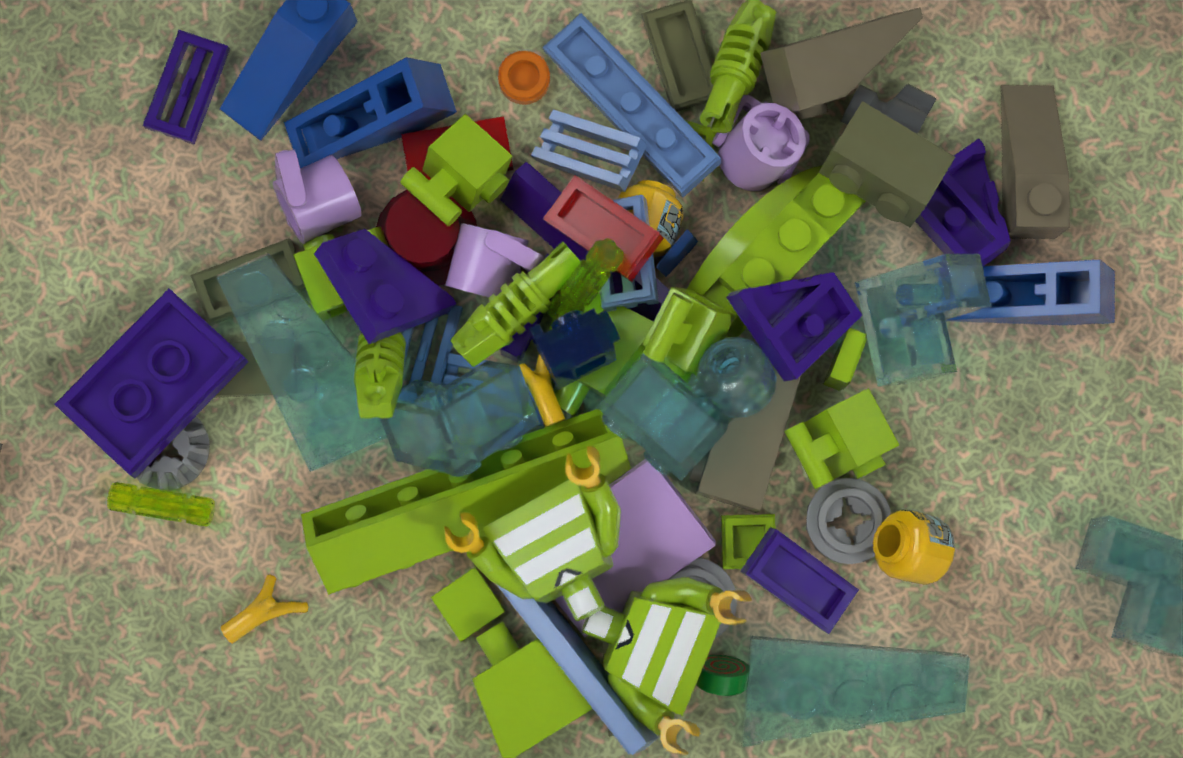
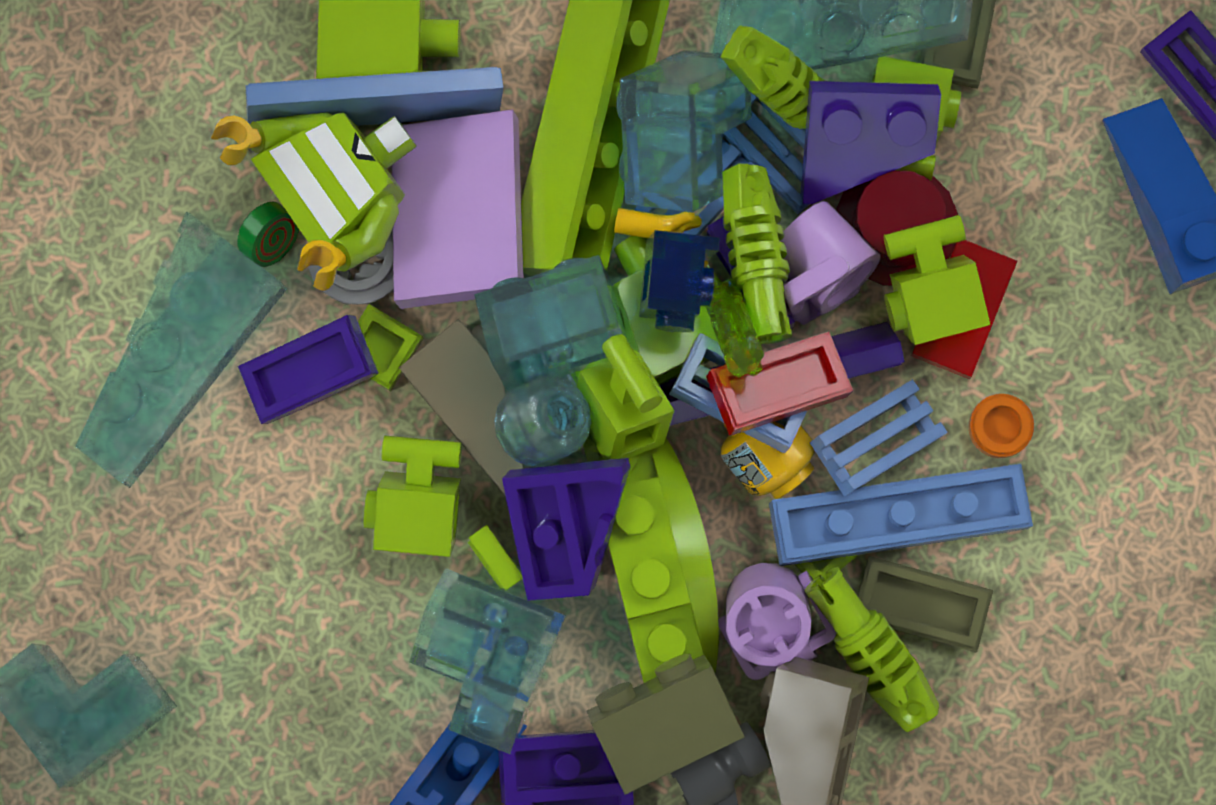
camera: 130 degrees right, 0 degrees up
(315, 196) = (1004, 129): lavender piece -> none
(373, 112) = (1057, 243): blue slope -> none
(468, 604) = (498, 36): lime tile -> none
(552, 541) = (499, 133): lime torso -> none
(677, 253) = (714, 460): blue sticker -> none
(827, 505) = (324, 430): light grey gear -> none
(914, 547) = (265, 500): yellow head -> none

